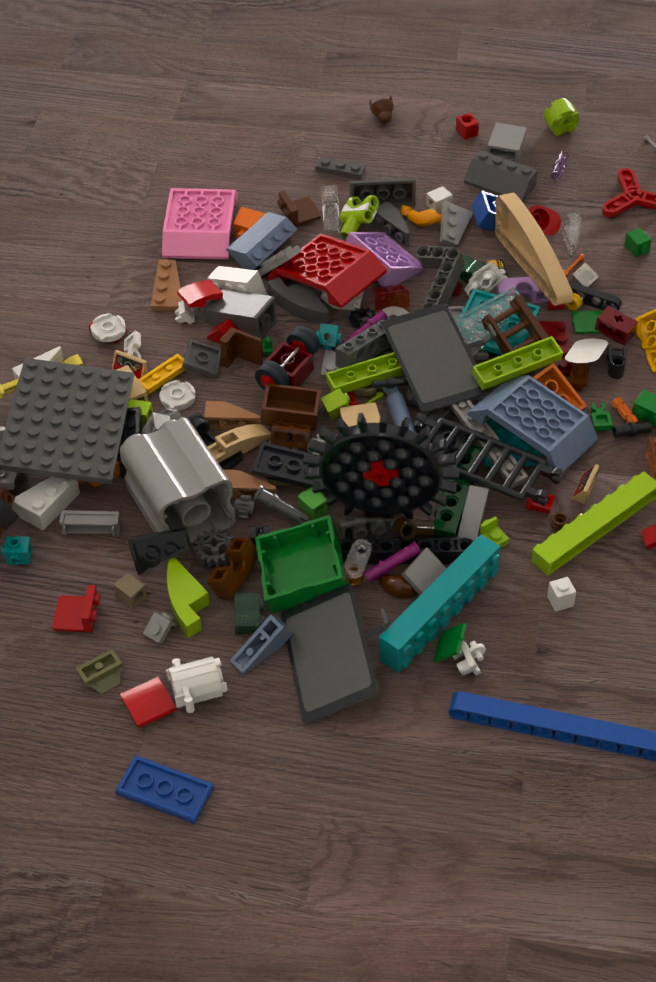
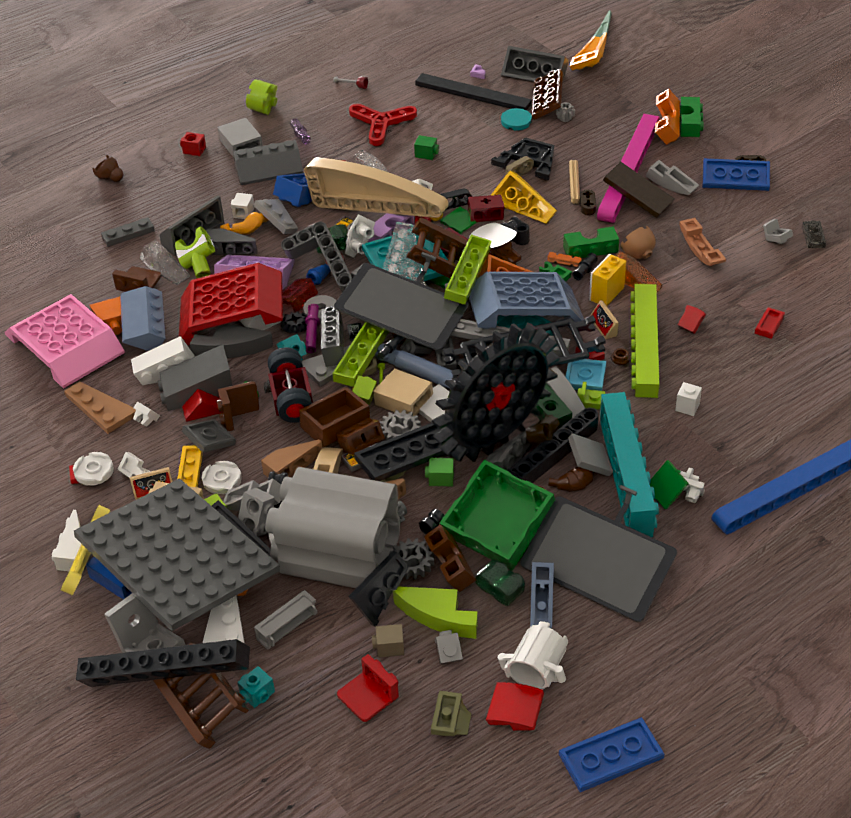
camera: 45 degrees left, 5 degrees down
(197, 293) = (146, 387): red slope -> none
(273, 501) = (415, 490): dark grey pin -> none
(278, 259) = (182, 319): light grey wing -> none
(358, 559) = (536, 476): clear plate -> none
(392, 562) = (555, 471): magenta pin -> none
(420, 291) = (318, 273): none -> blue cone
(512, 515) = (586, 371): none -> medium azure plate
(626, 452) = (607, 279): none -> yellow piece

